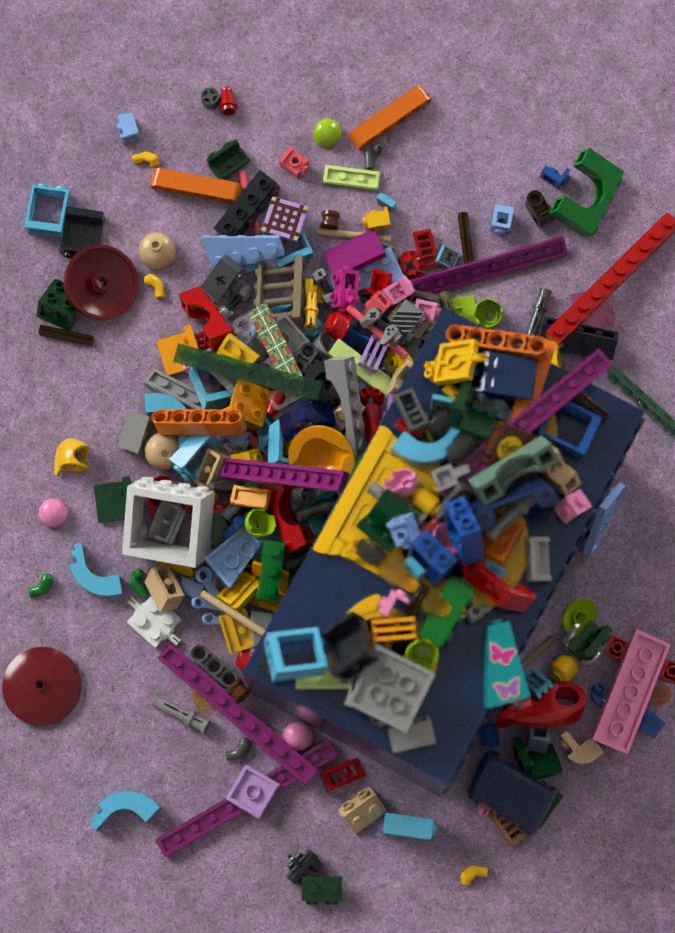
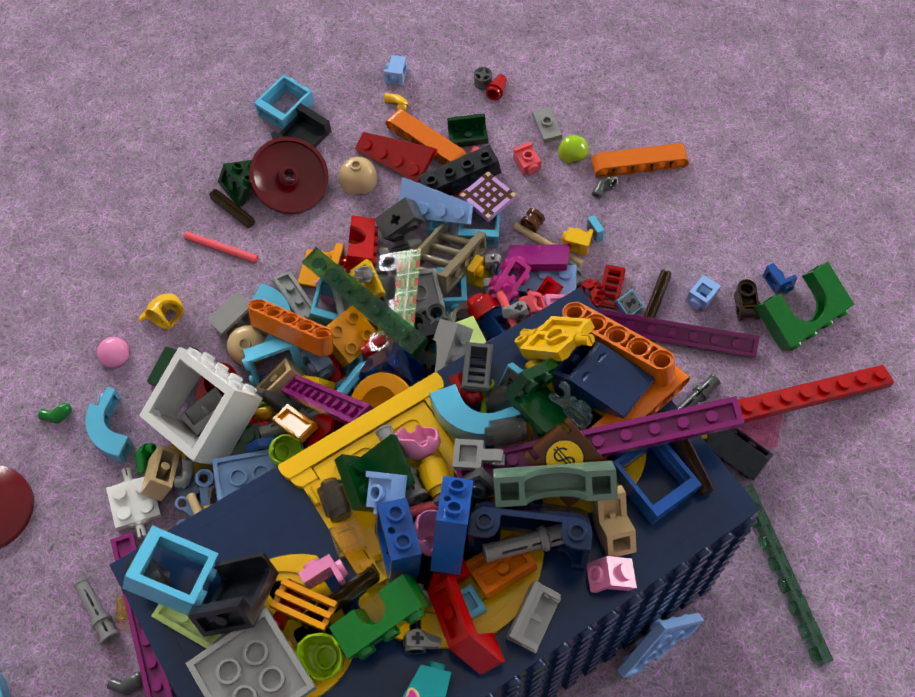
camera: 30 degrees right, 15 degrees down
(79, 375) = (221, 247): none -> coral bar
(157, 283) = (340, 202): yellow arm -> none
(184, 214) = (399, 155): none -> red wing
(188, 579) = (188, 471): none -> light grey arm
(235, 349) = (363, 274): none -> light grey plate
(290, 118) = (546, 124): none -> light grey plate
(311, 311) = (462, 282): yellow pin -> none
(351, 177) = (574, 195): yellowish green tile -> none
(414, 568) = (374, 545): medium azure tile -> none

